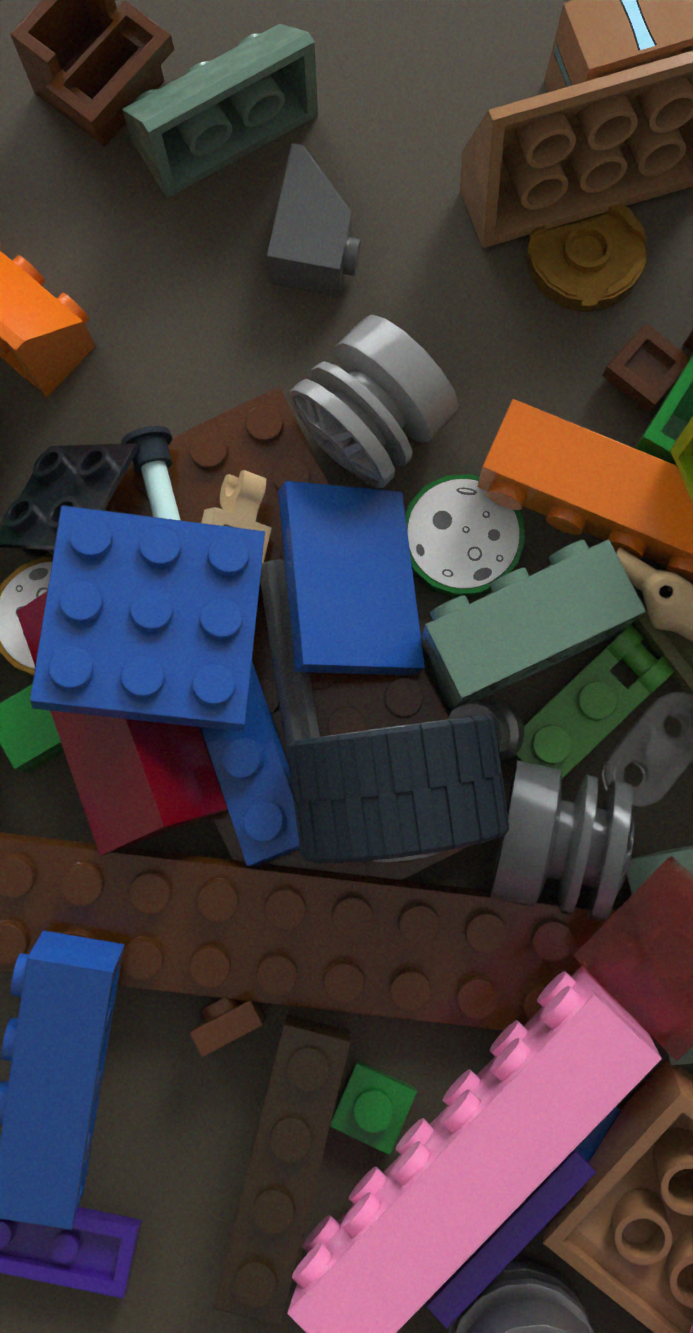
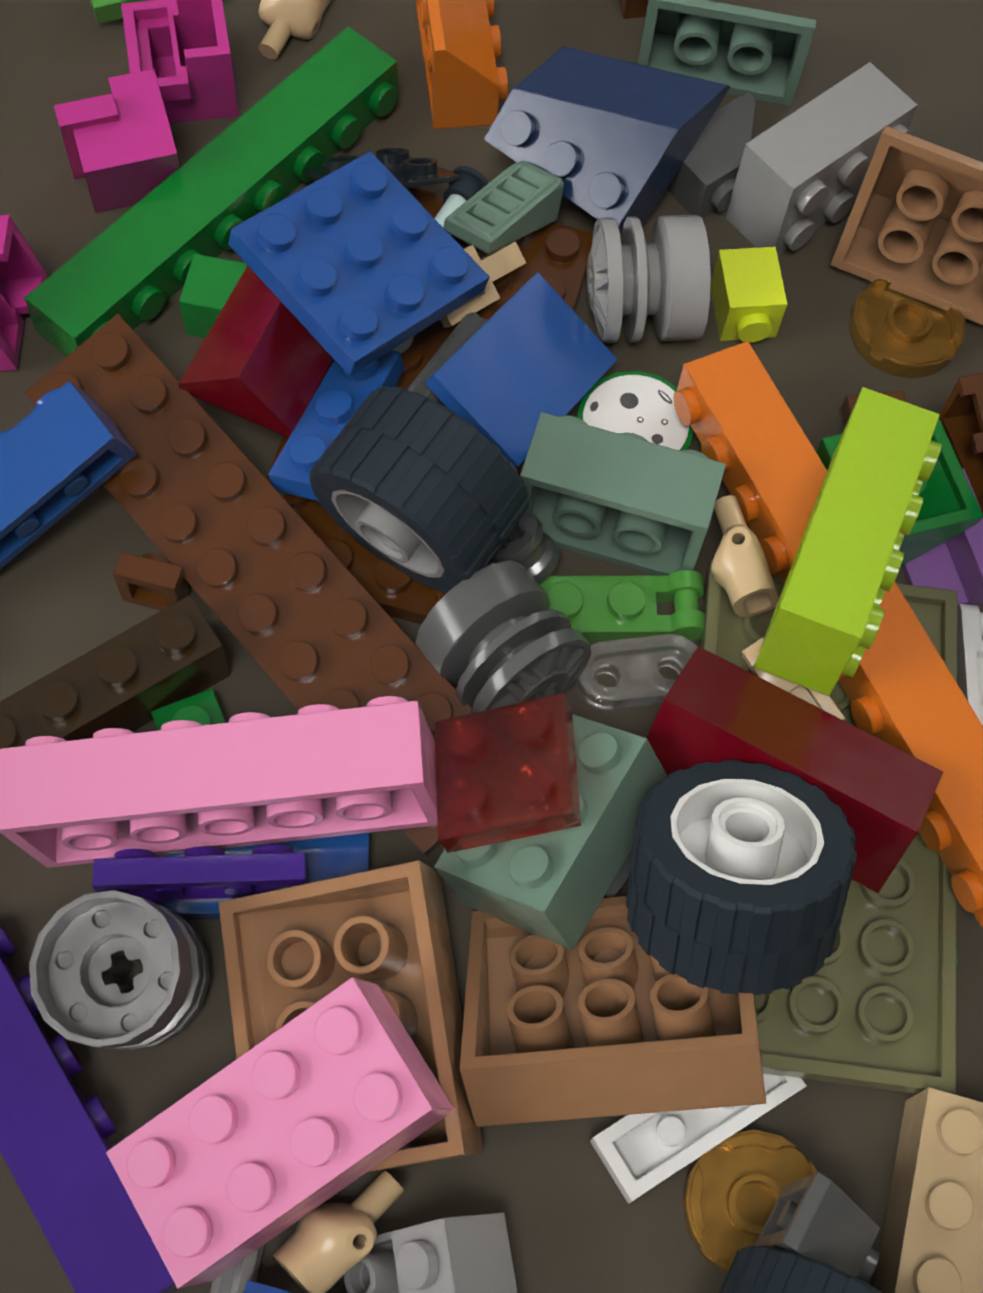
camera: 35 degrees right, 15 degrees down
(193, 403) = (513, 203): none -> sand green slope
(211, 291) = (606, 128): none -> dark blue wedge
(413, 160) = (815, 160): none -> light grey brick
(455, 335) = (748, 294): none -> neon yellow brick

